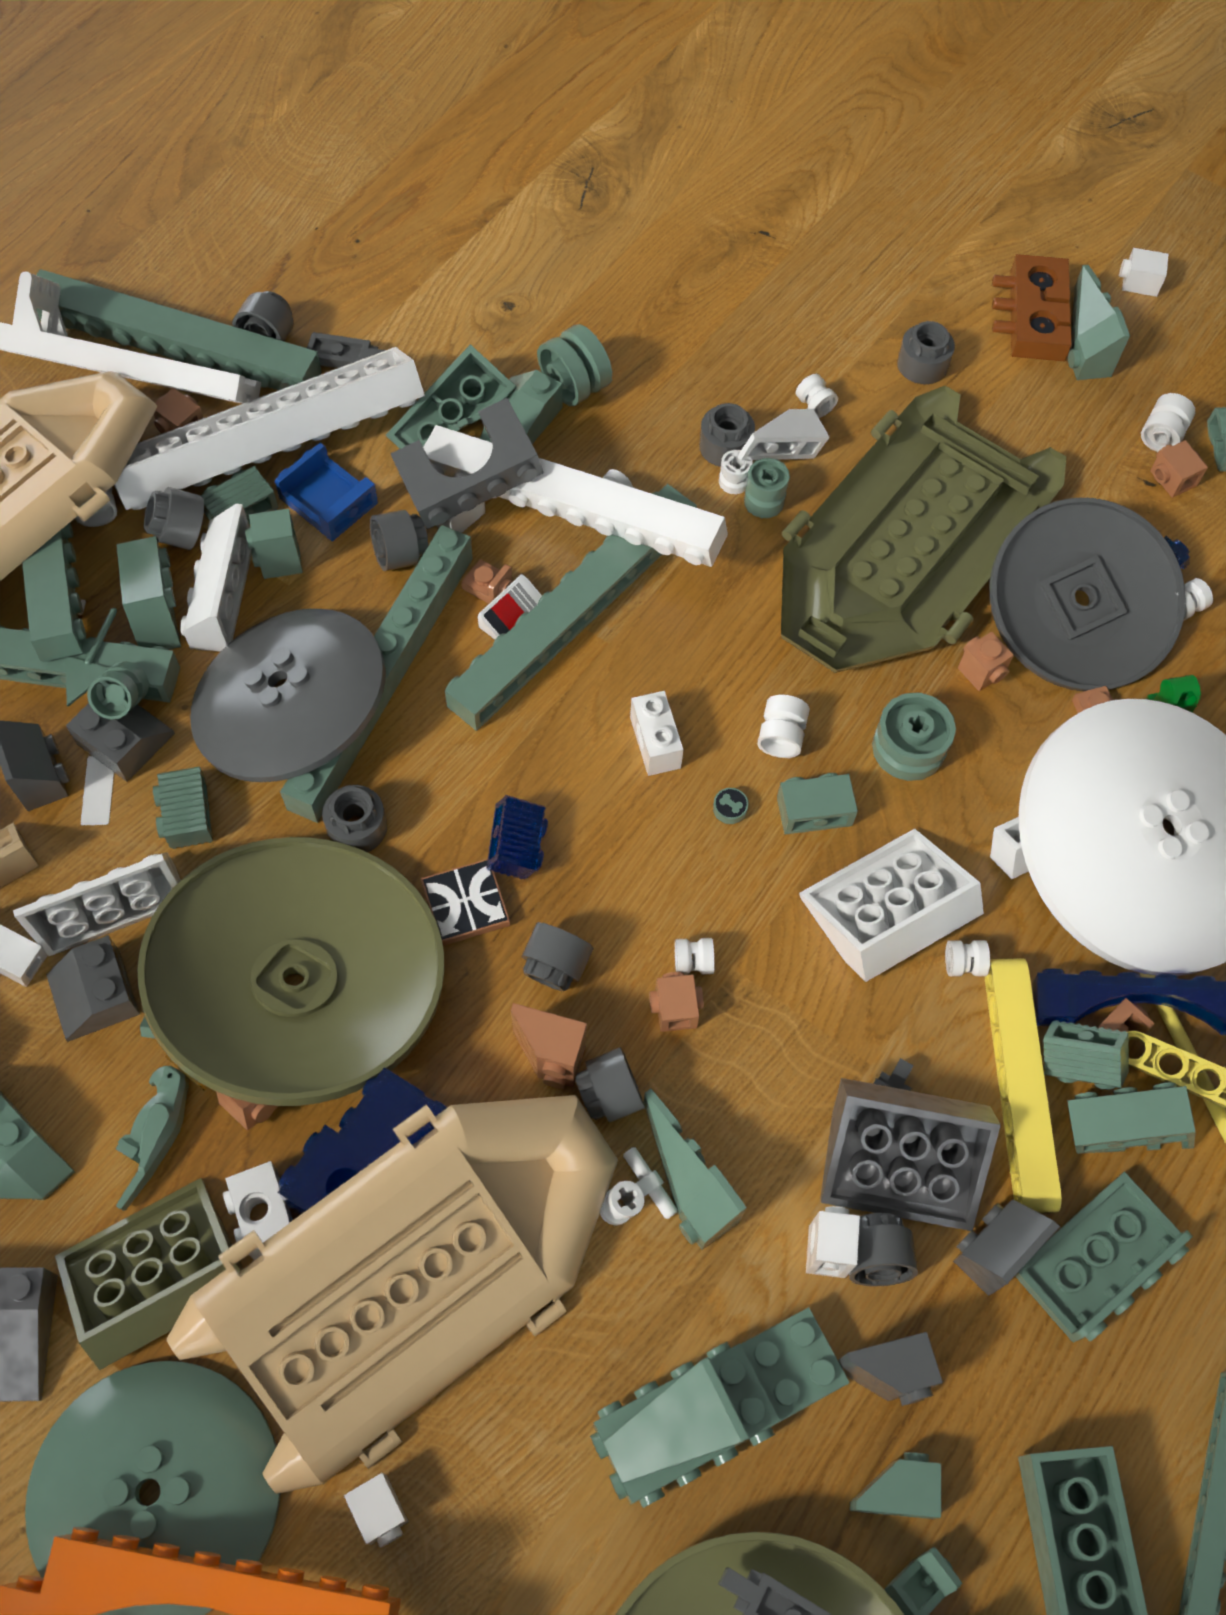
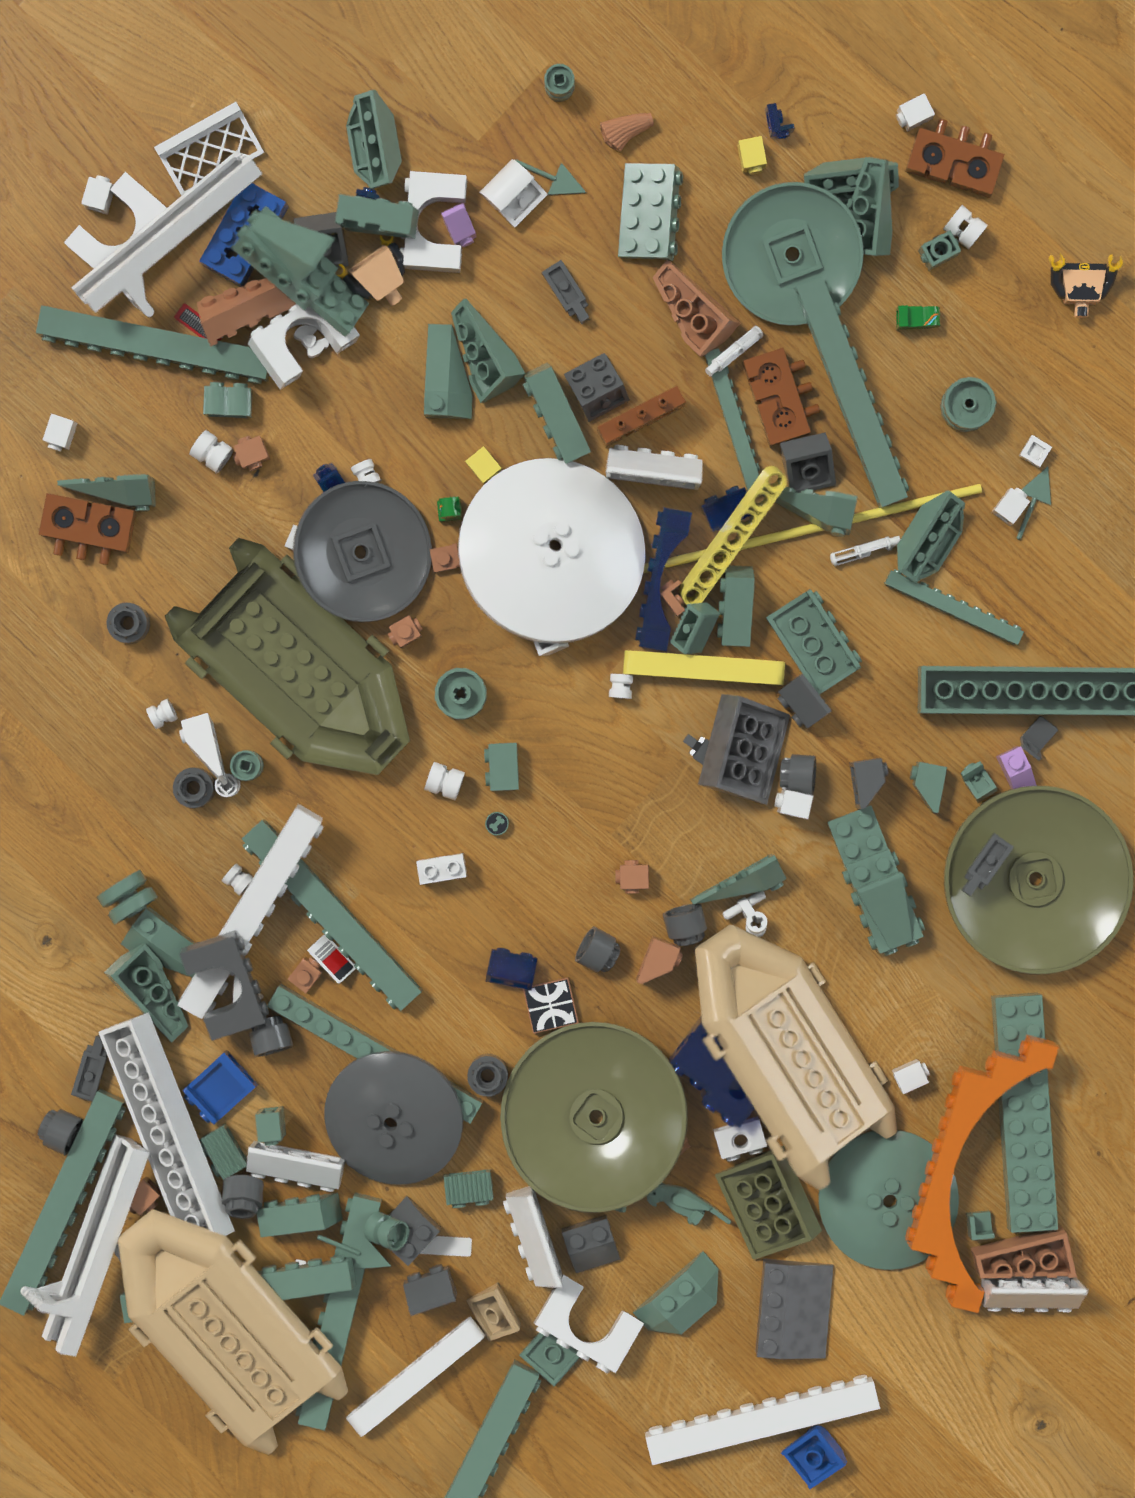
camera: 80 degrees left, 25 degrees up
(702, 956) = (603, 861): white wheel -> none
(893, 903) = (577, 728): white slope -> none

